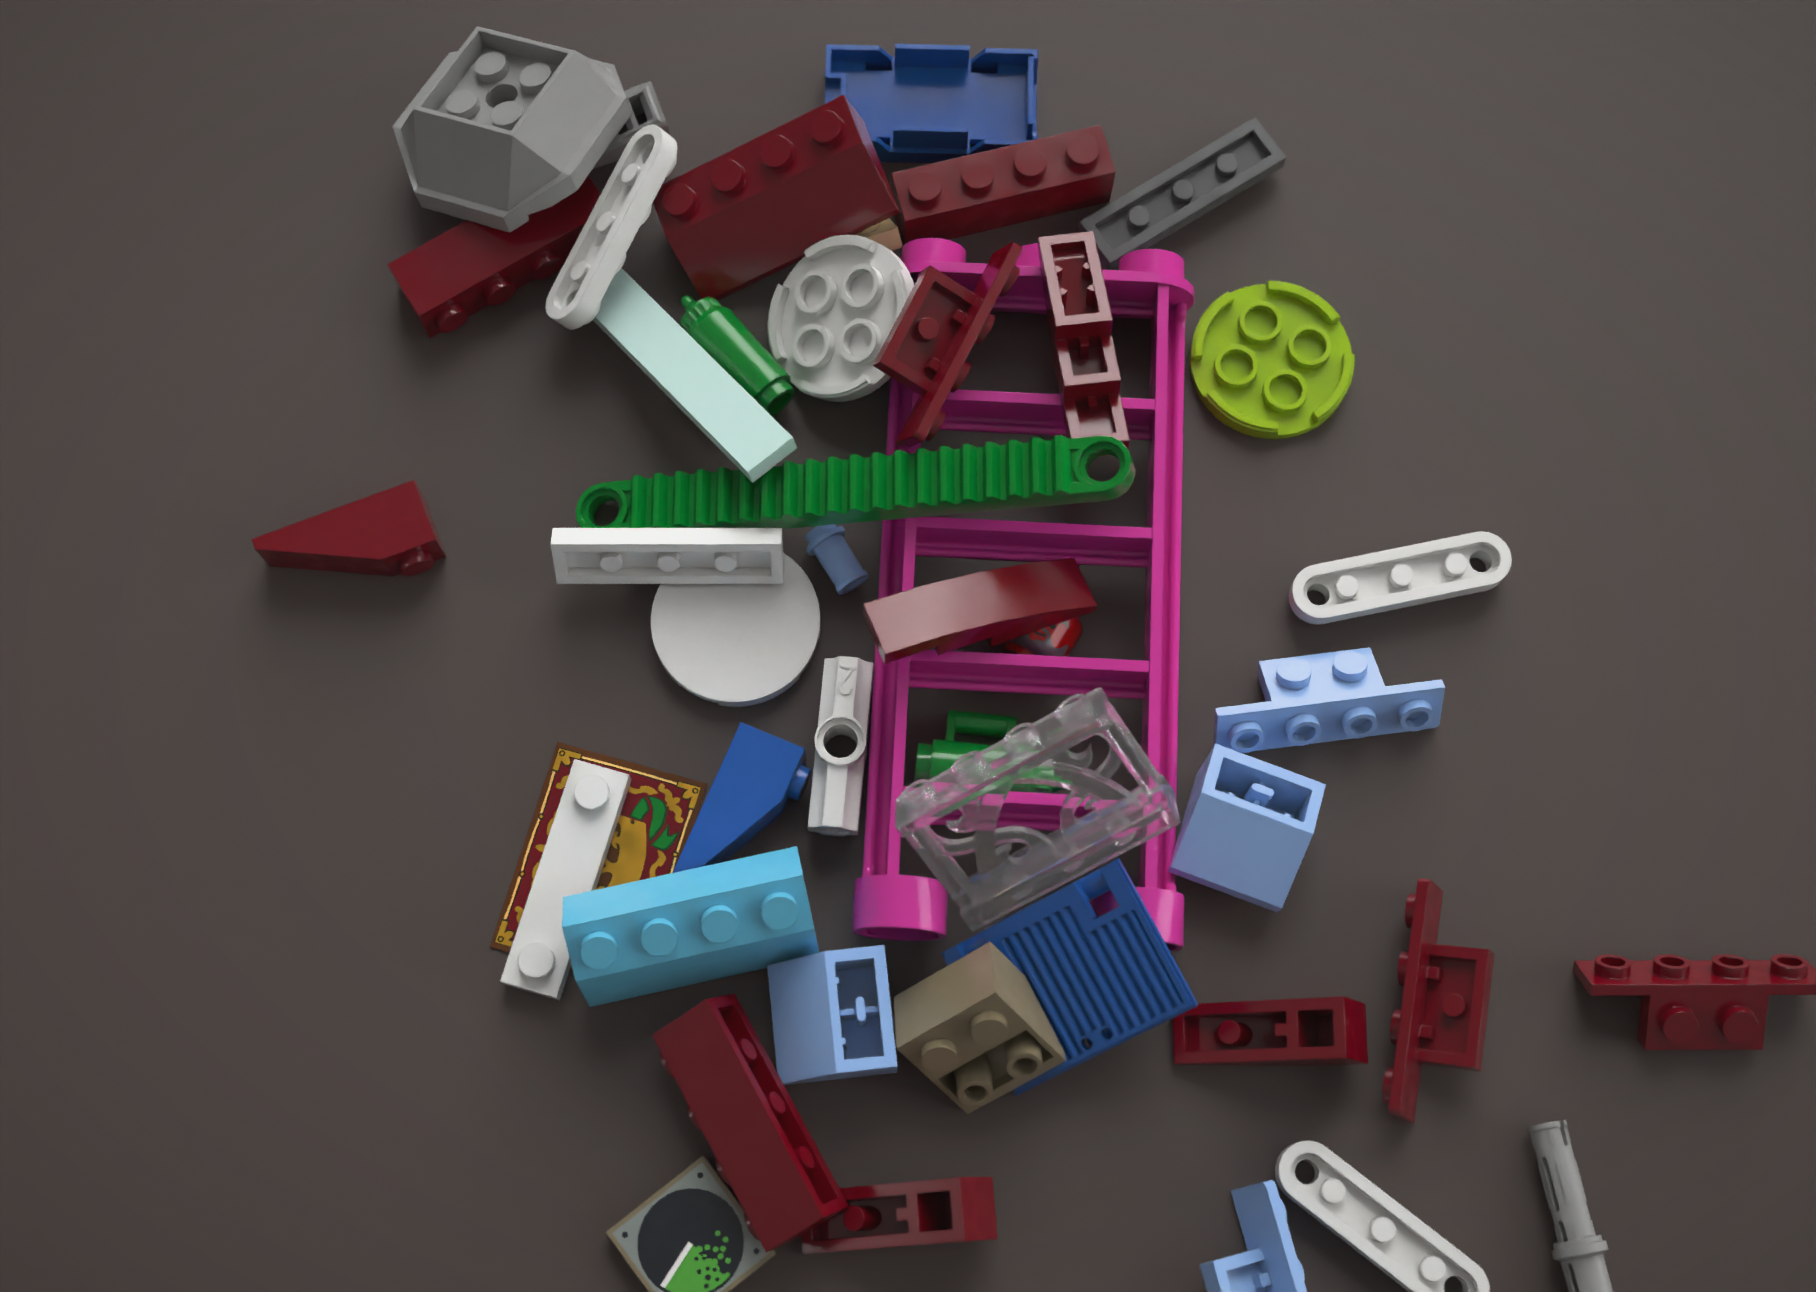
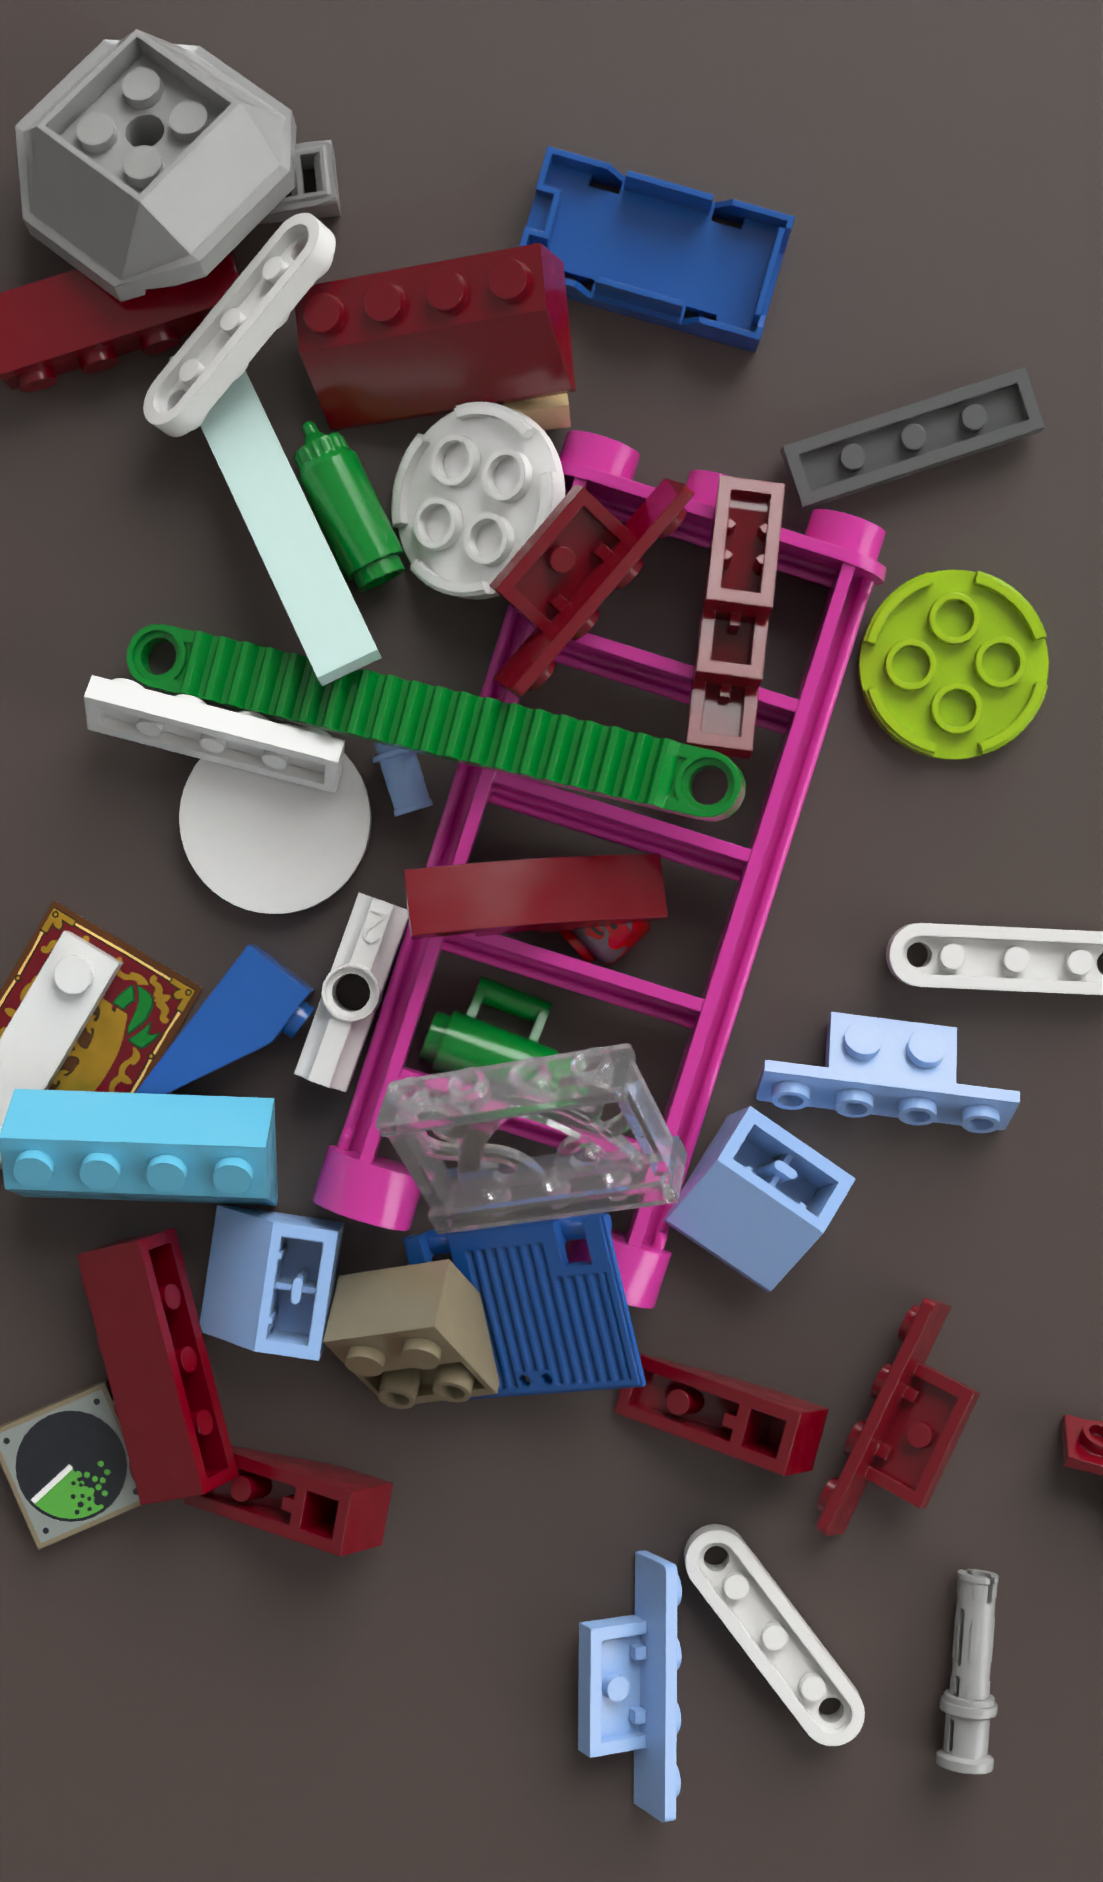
camera: 15 degrees right, 15 degrees up
(1004, 186) = (707, 379): dark red brick -> none

